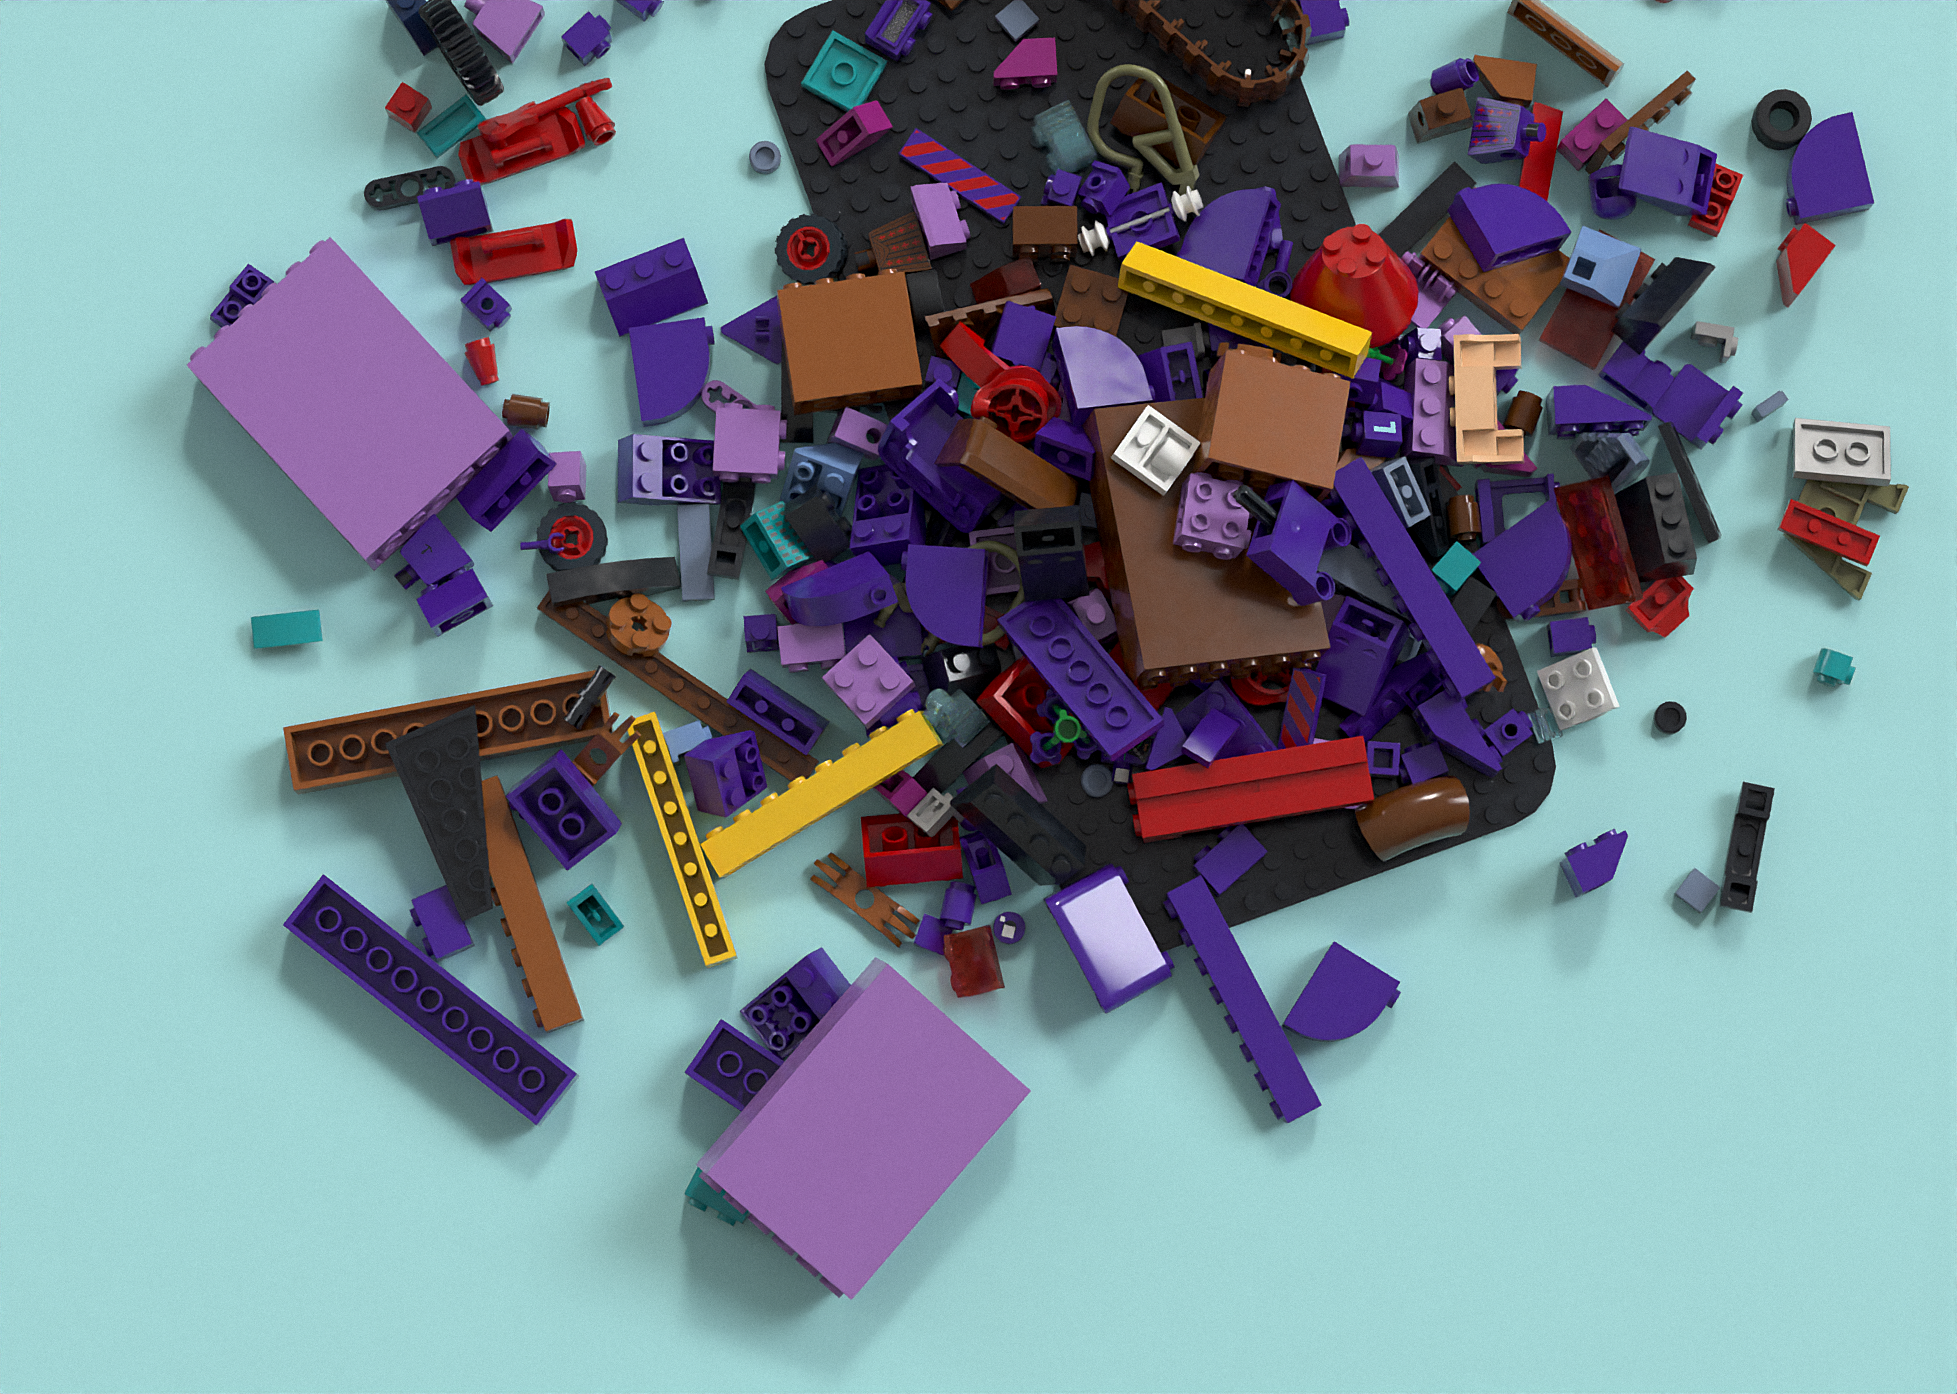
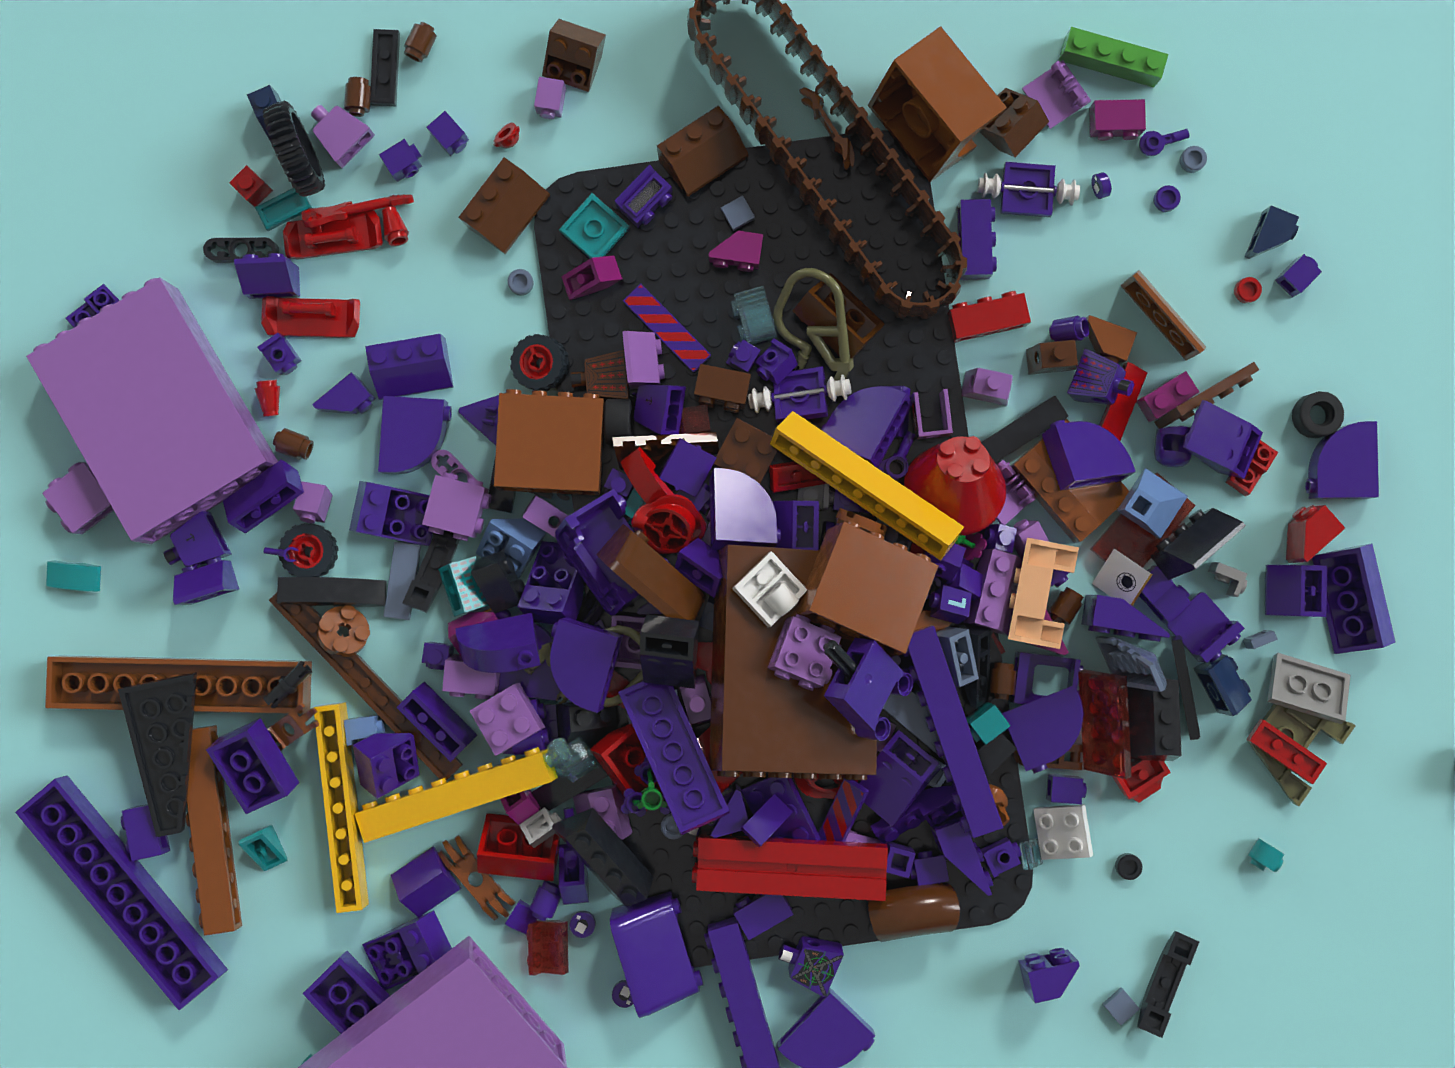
camera: 15 degrees right, 5 degrees up
(279, 529) = (77, 499): none -> medium lavender brick
(580, 341) = (346, 397): none -> dark purple slope
(727, 68) = (504, 205): none -> reddish brown slope
(803, 916) = (424, 883): none -> dark purple slope
(972, 270) = (659, 407): none -> dark purple torso
(1079, 1002) = (621, 994): none -> dark purple tile
(1154, 321) = (791, 476): none -> red plate
(1304, 911) = (813, 963): none -> torso
(1312, 237) = (946, 417): none -> medium lavender piece
(1352, 82) = (989, 316): none -> red brick
(1583, 363) = (1122, 578): none -> white sticker
(1736, 468) = (1224, 685): none -> dark blue slope
(1799, 337) = (1296, 590): none -> dark purple slope
(1873, 333) = (1355, 600): none -> dark purple slope

